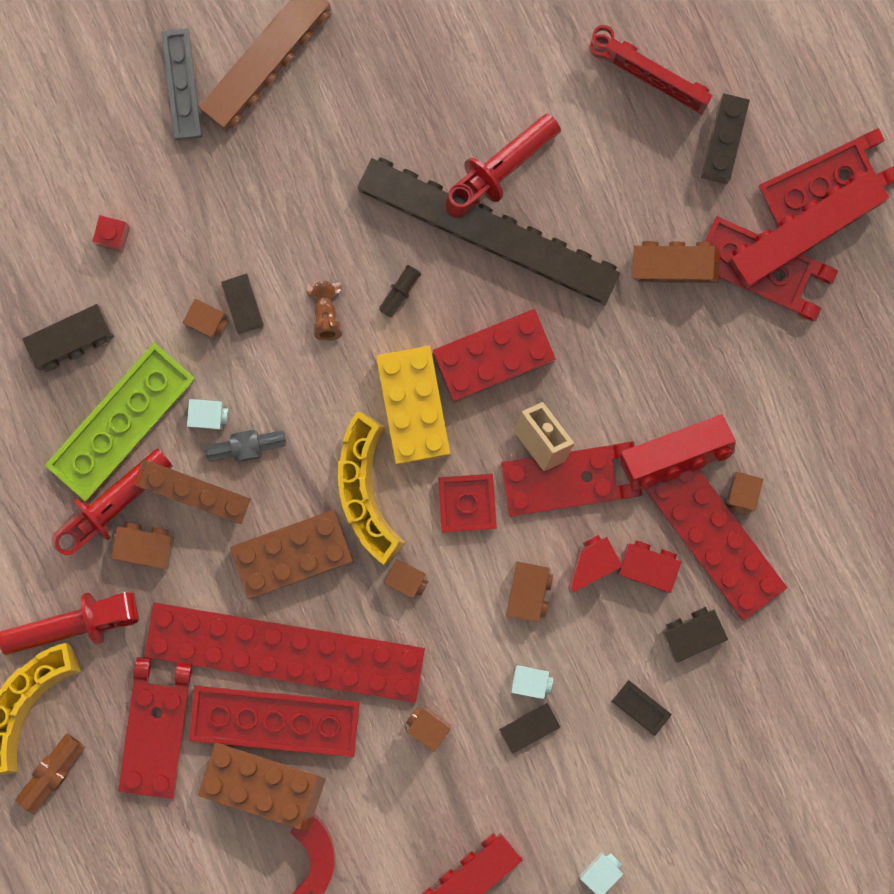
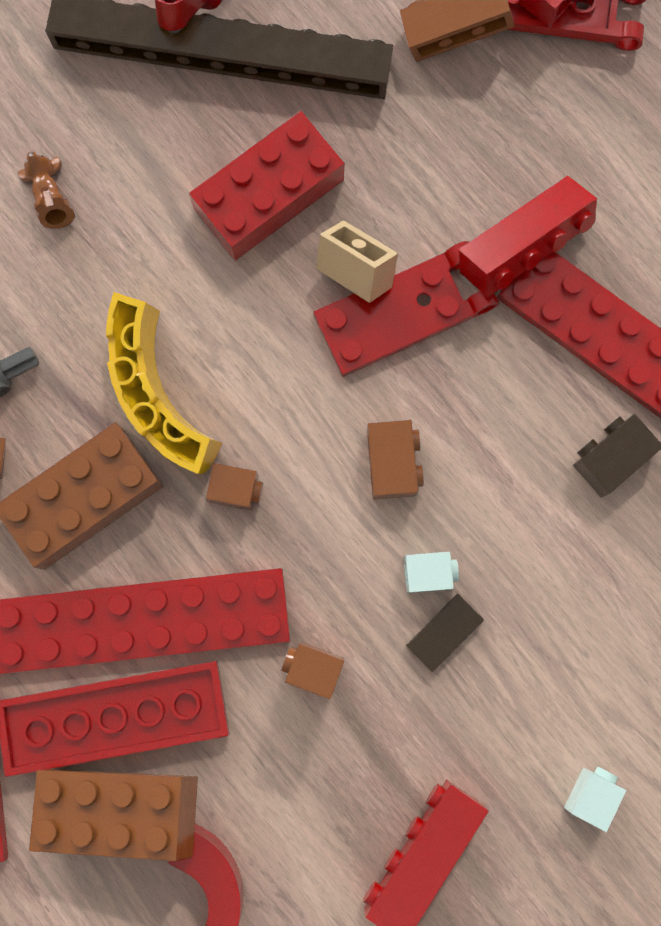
camera: 20 degrees left, 5 degrees down
(399, 291) = (132, 143): dark brown axle -> none
(413, 405) = (184, 271): yellow brick -> none
(467, 503) = (285, 372): red plate -> none
(593, 563) = (468, 392): red slope -> none
(641, 707) = (577, 566): dark brown tile -> none
(649, 567) = (535, 386): red brick -> none
(744, 493) = (622, 264): dark orange brick -> none

